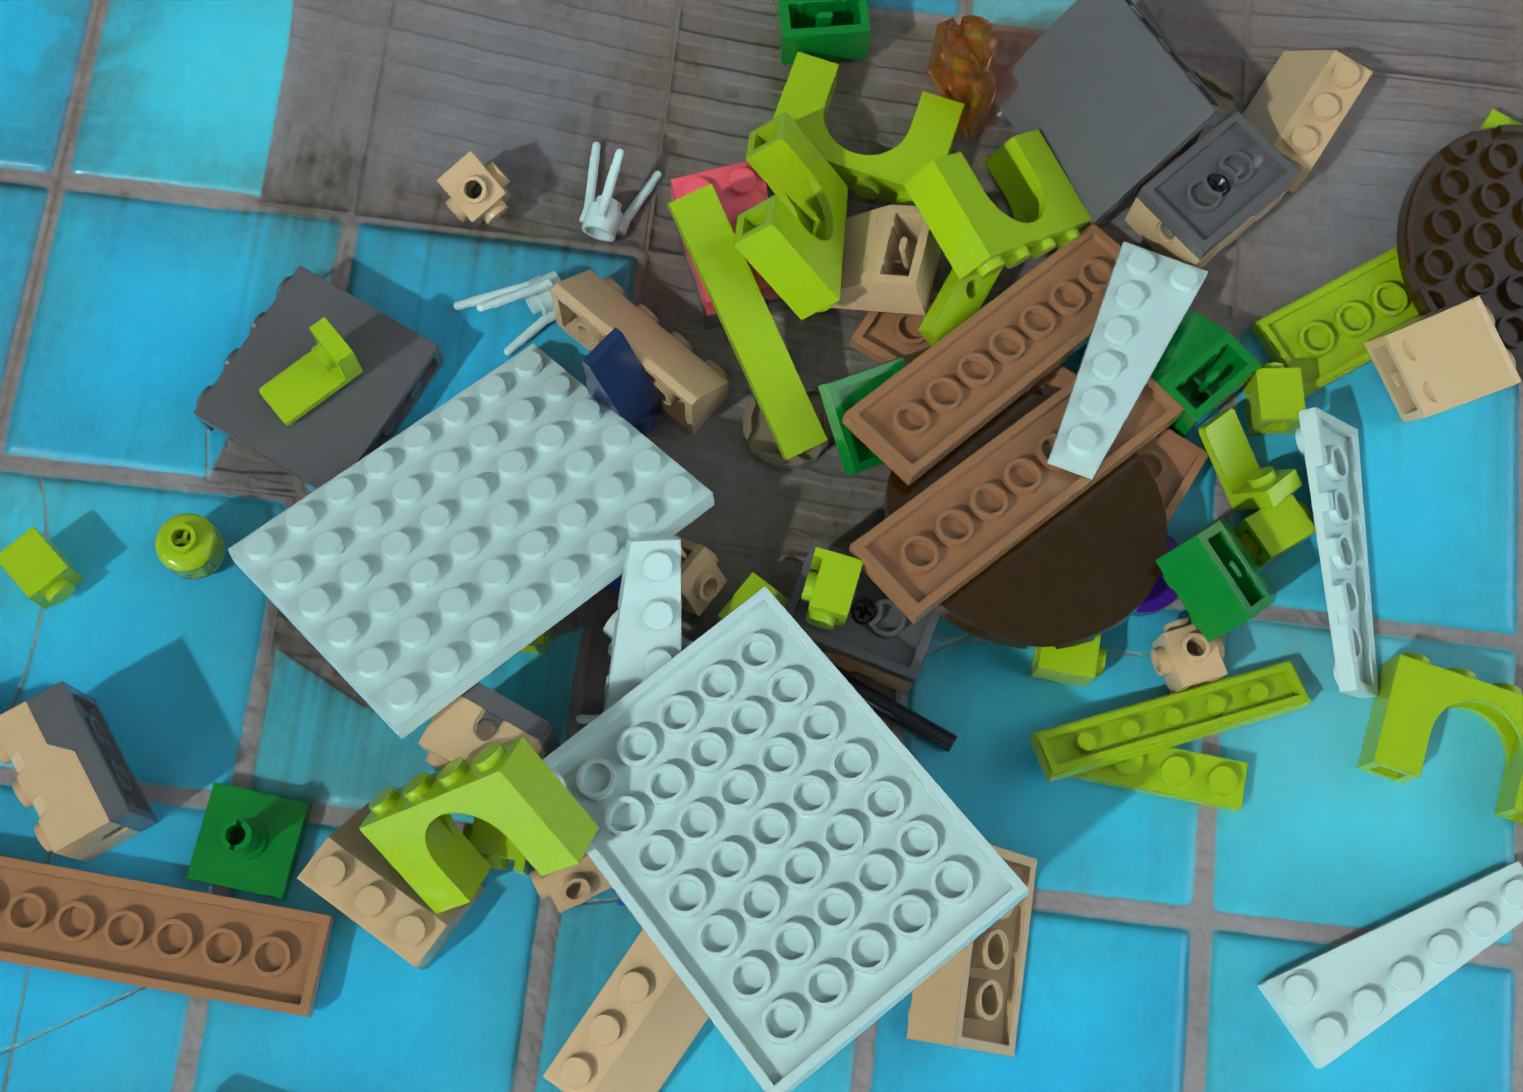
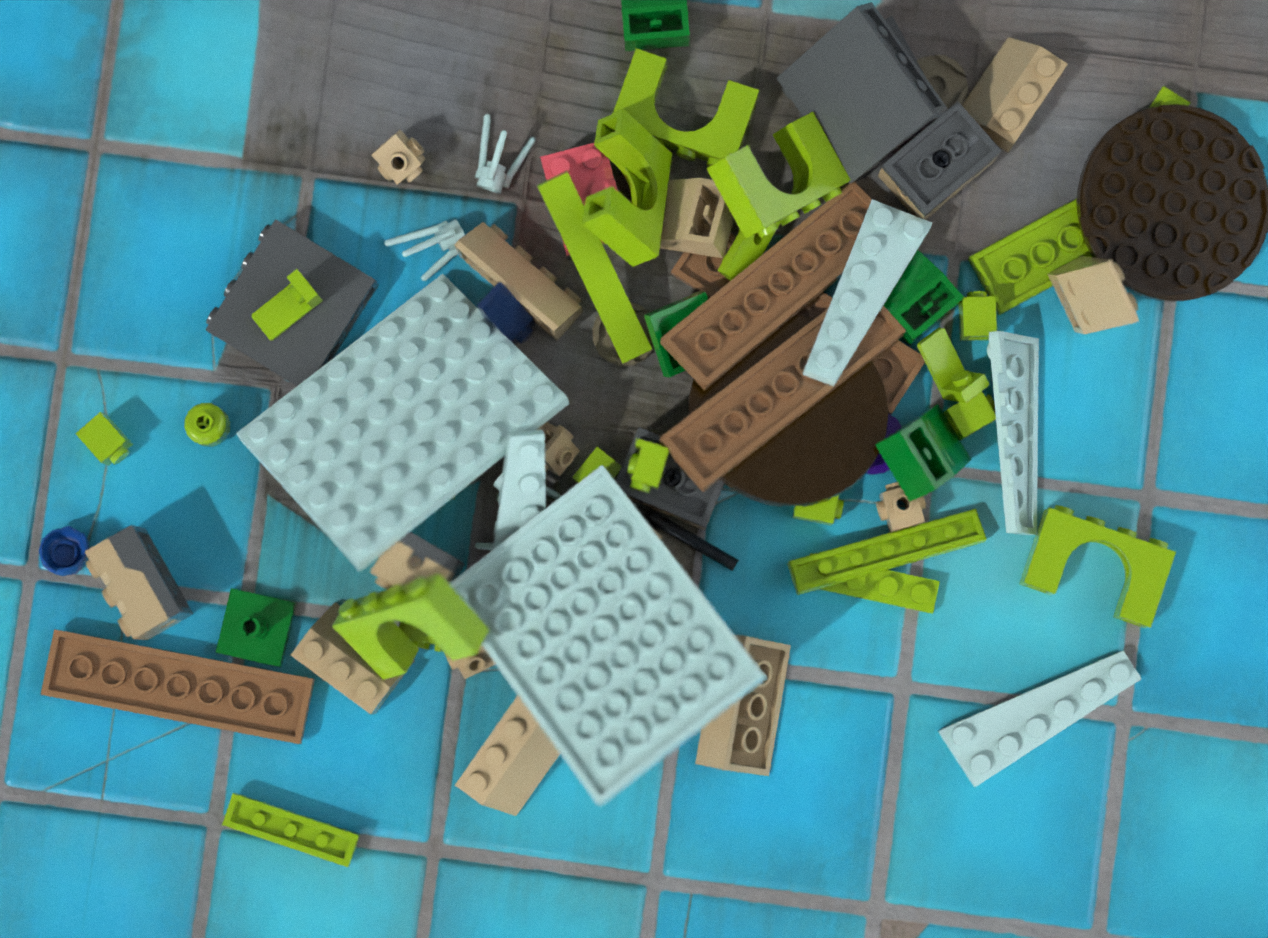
camera: 15 degrees right, 10 degrees up
(961, 68) = (759, 63): clear orange plate -> none

